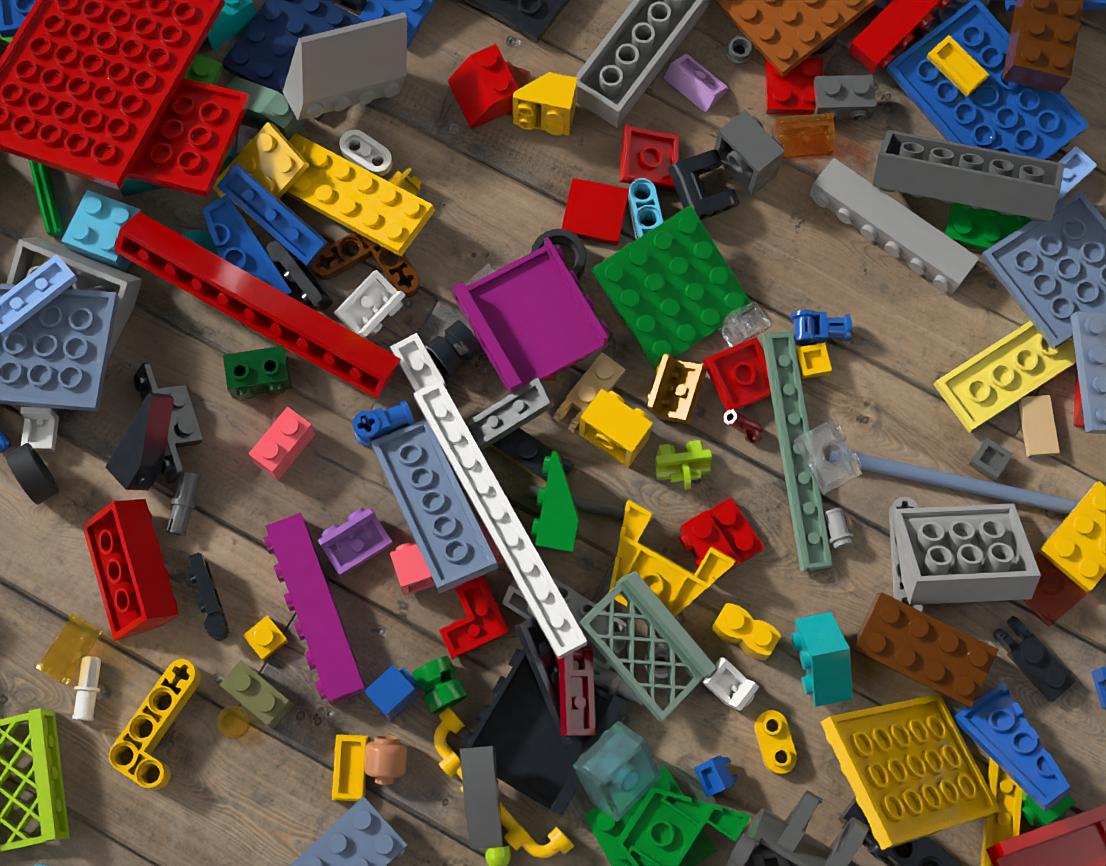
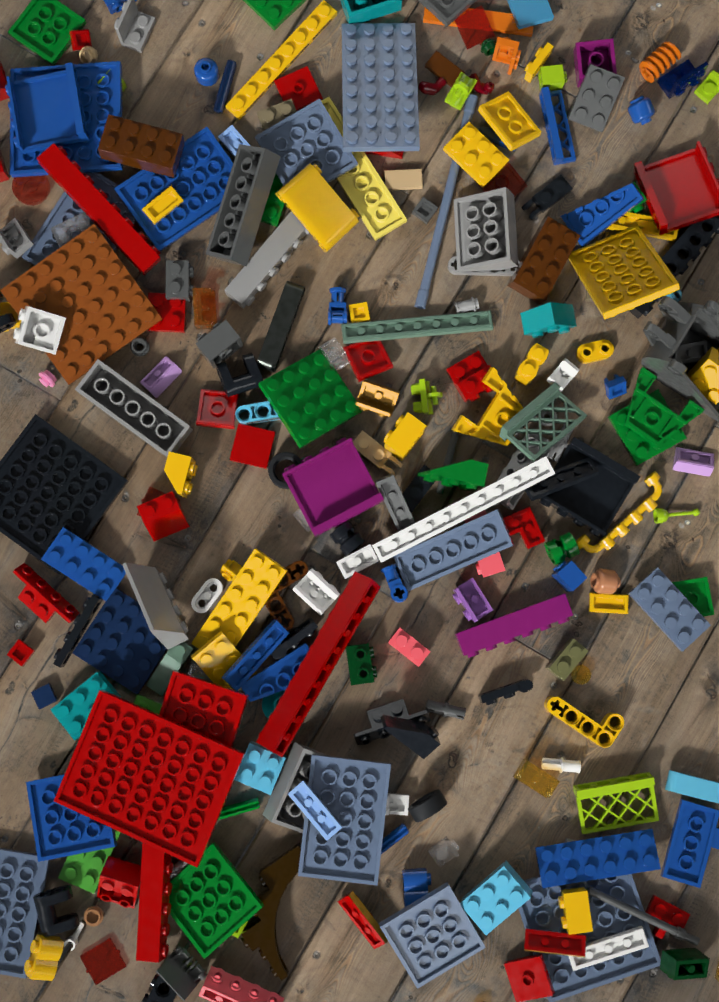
camera: 90 degrees left, 10 degrees up
(130, 568) = (487, 741): red slope -> none
(265, 638) = (530, 656): yellow plate -> none
(481, 797) = (630, 523): dark grey slope -> none
(577, 693) = (573, 464): dark red plate -> none
(617, 770) = (616, 443): clear light blue brick -> none
(744, 425) = (398, 361): dark red arm -> none
(784, 245) = (280, 326): none -> pearl dark grey beam
(828, 474) = (419, 315): clear brick -> none
(974, 284) = (318, 207): none -> yellow windscreen

